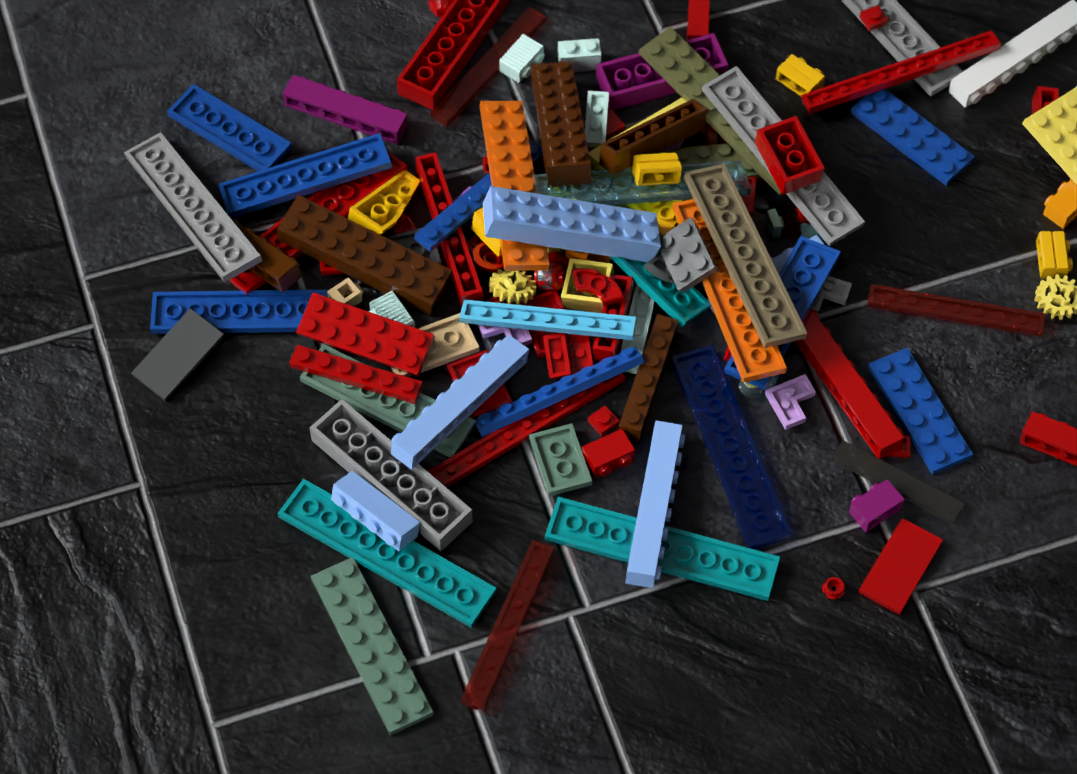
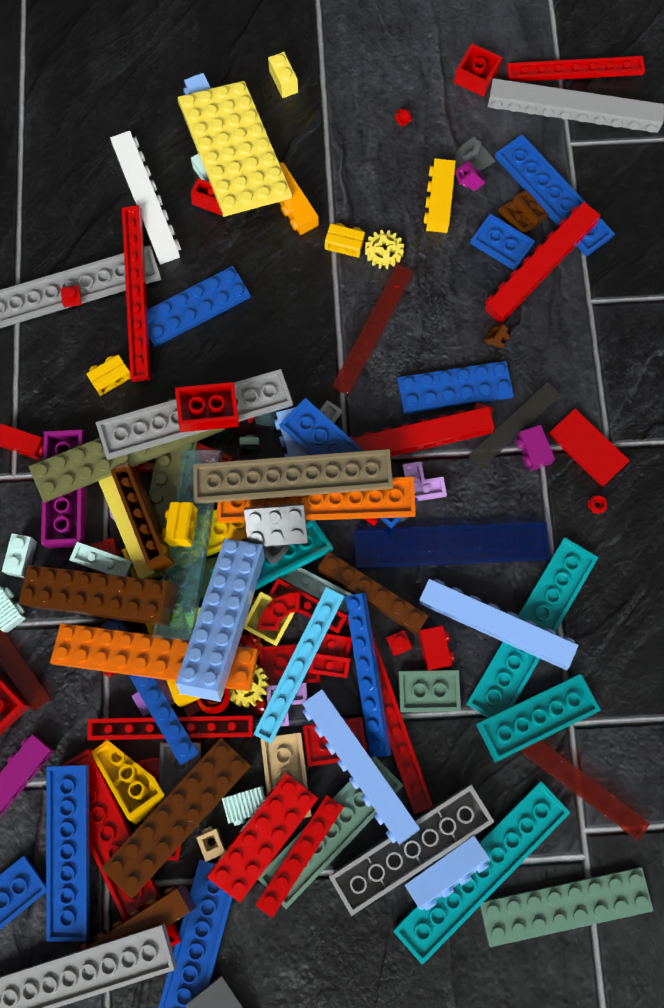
camera: 75 degrees left, 15 degrees up
(564, 568) = (537, 718): none -> teal plate
(996, 434) = (496, 334): none -> reddish brown tile

